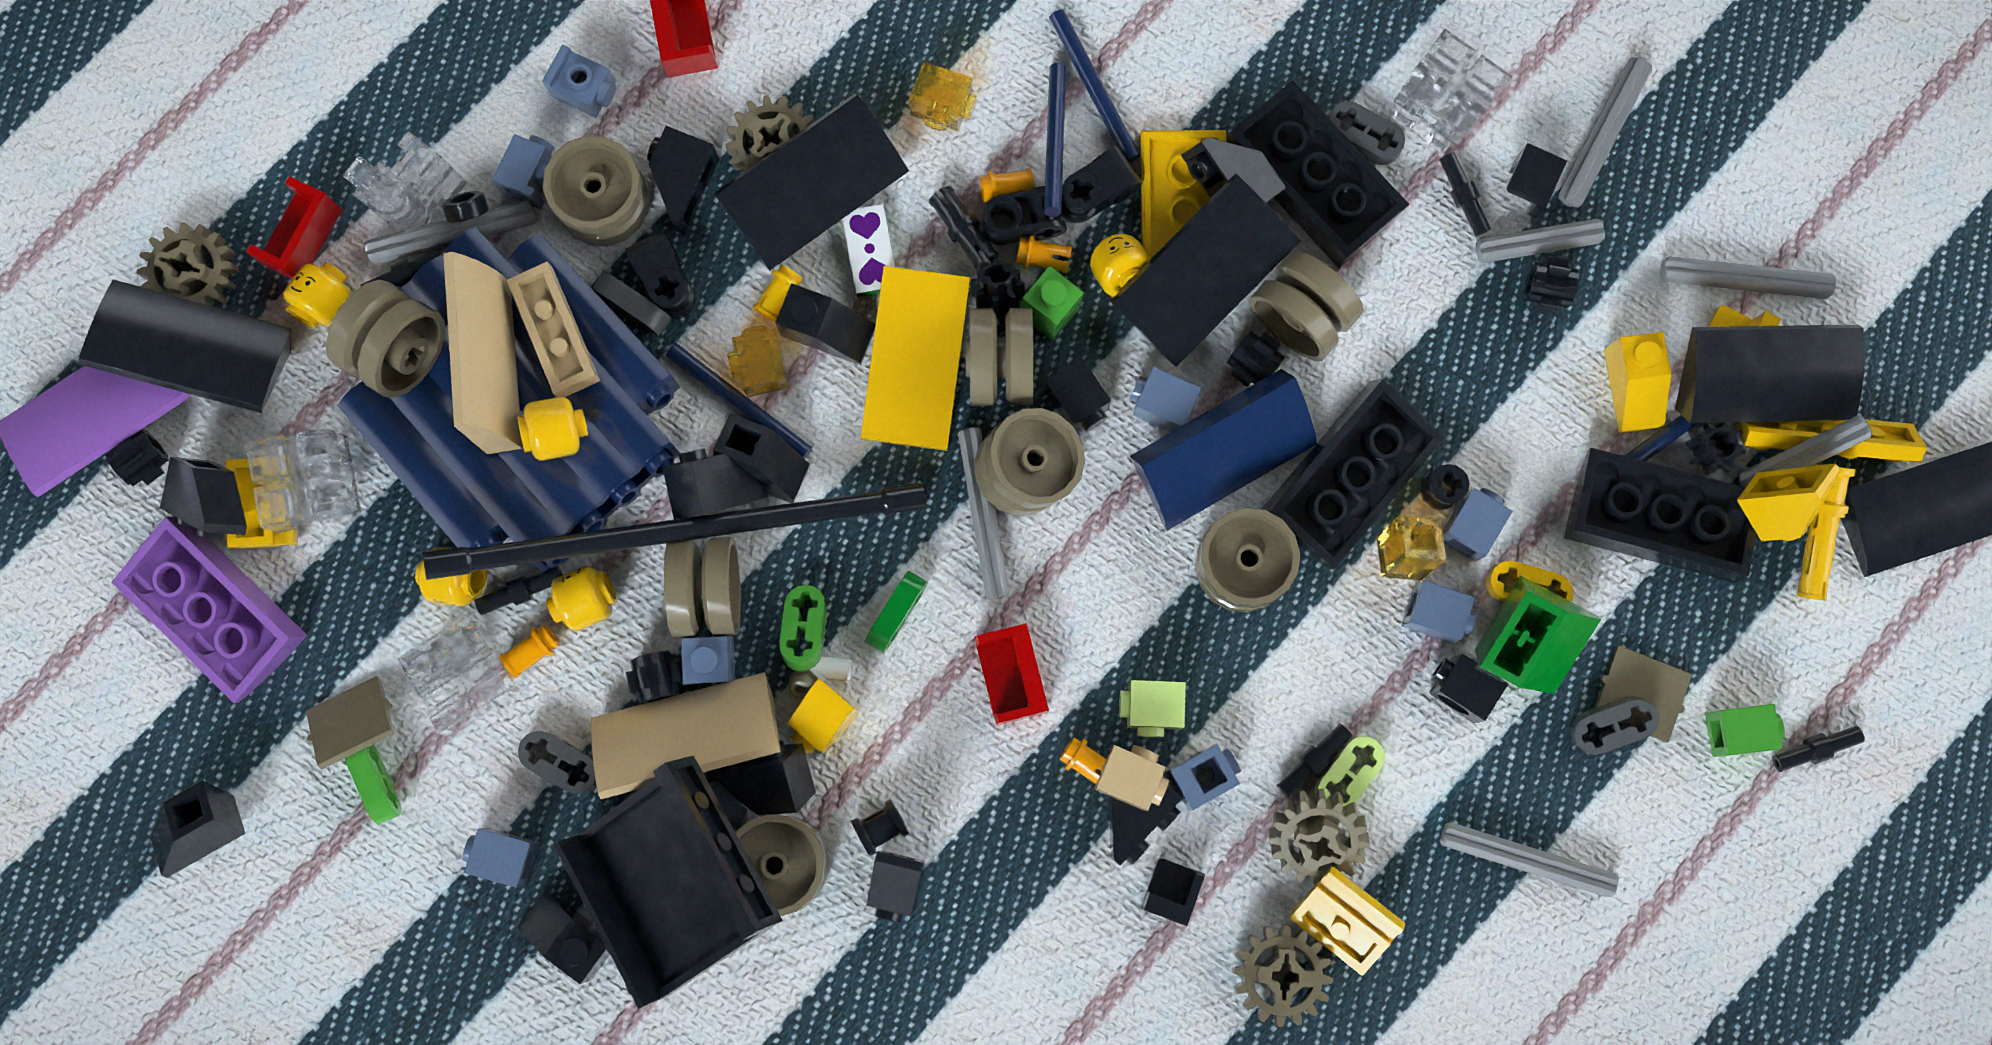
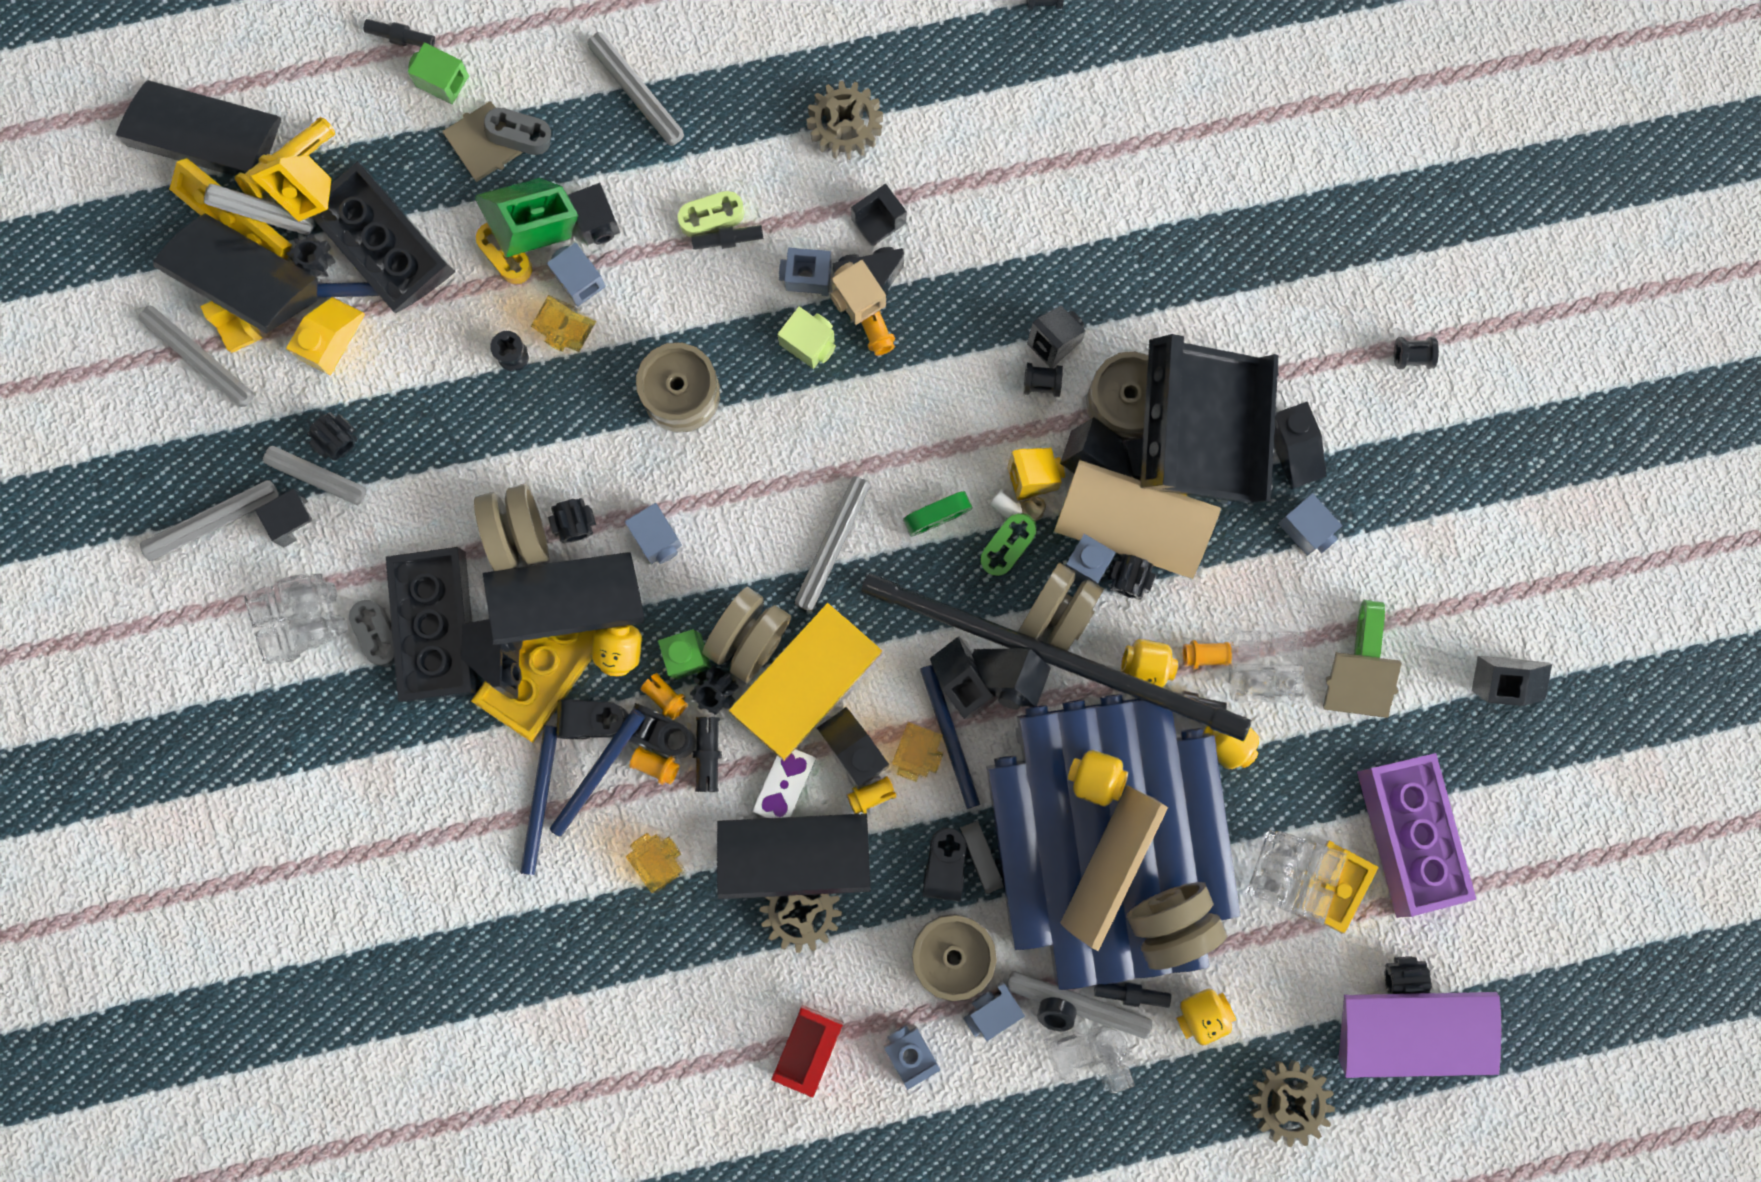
camera: 145 degrees left, 0 degrees up
(186, 346) = (1326, 1033): black slope -> none
(203, 497) = (1375, 910): black slope -> none
(300, 230) = (1193, 1079): red panel -> none
(553, 330) = (1052, 856): tan plate -> none
(553, 771) = (1240, 561): dark grey beam -> none
(682, 172) = (883, 934): black slope -> none
(1011, 674) = (888, 420): red panel -> none
(1029, 462) = (778, 549): dark tan wheel -> none
(1078, 396) = (712, 577): black brick -> none
(1226, 448) = (637, 473): dark blue slope -> none
(1315, 830) = (760, 184): dark tan gear -> none
(1347, 920) = (779, 124): plate -> none
(1354, 472) = (563, 404): black slope -> none
(1465, 194) = (340, 542): black bar -> none
(1476, 523) = (506, 312): sand blue brick -> none

